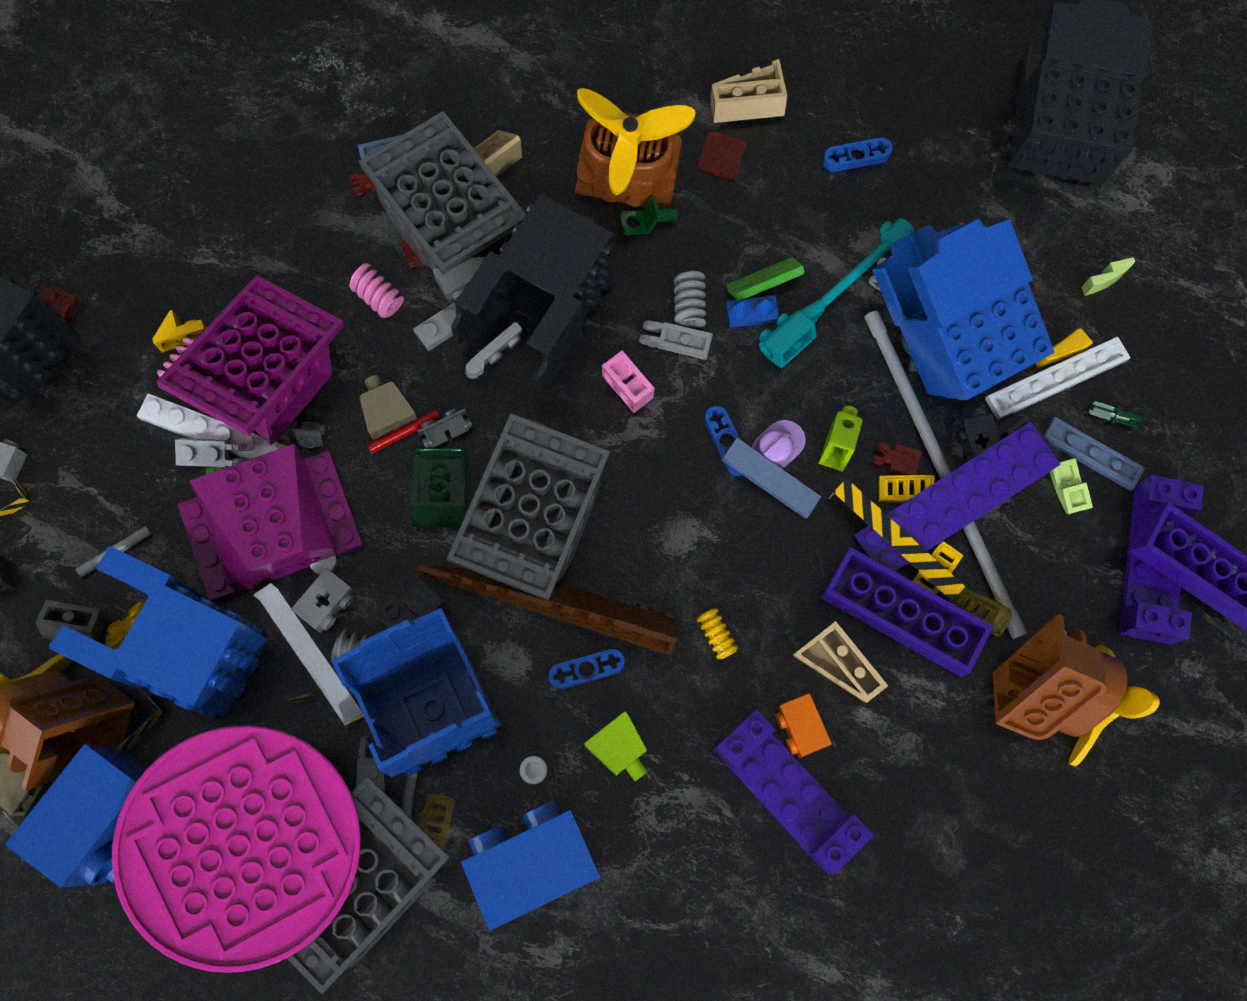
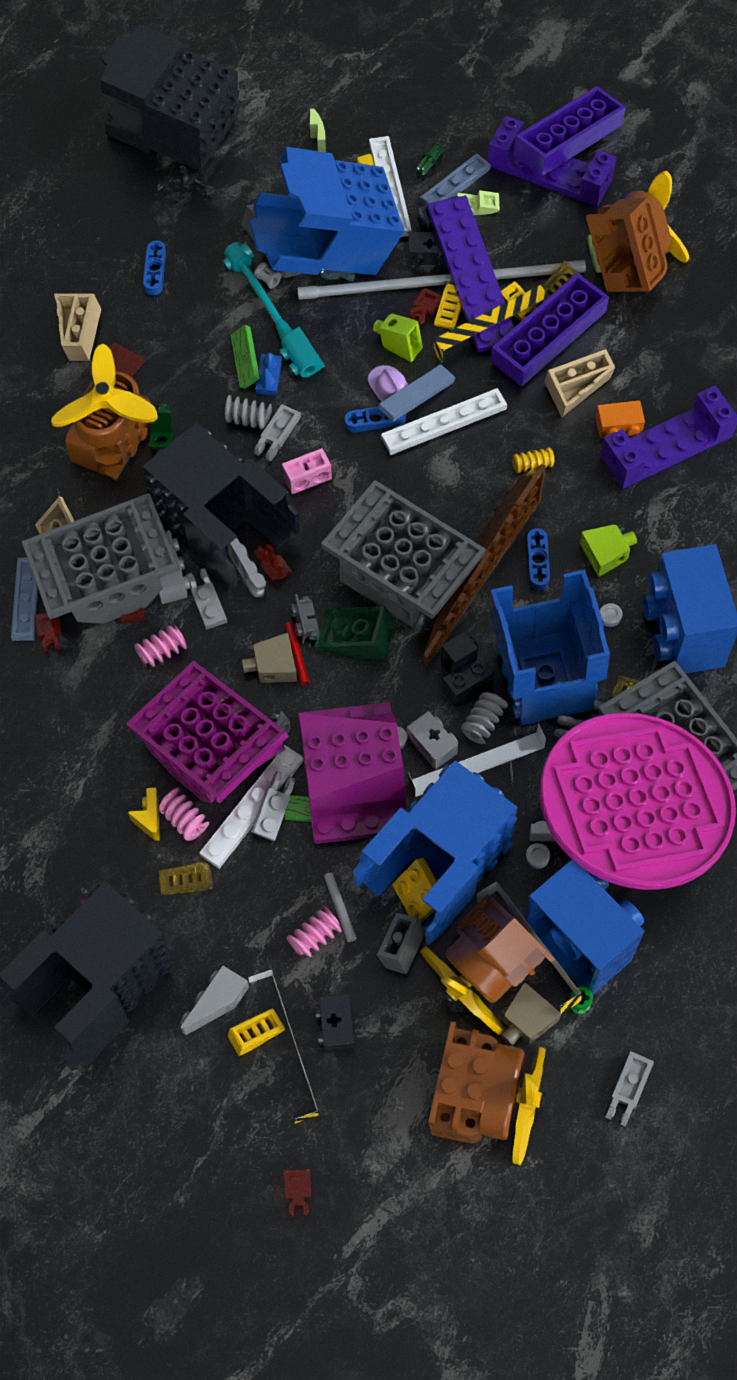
camera: 70 degrees left, 10 degrees down
(72, 532) = (314, 932): none -> bright pink piece
(122, 404) = (196, 885): none -> clear yellow slope
(503, 379) = (273, 565): none -> clear red plate
(743, 519) = (443, 421): none -> white plate

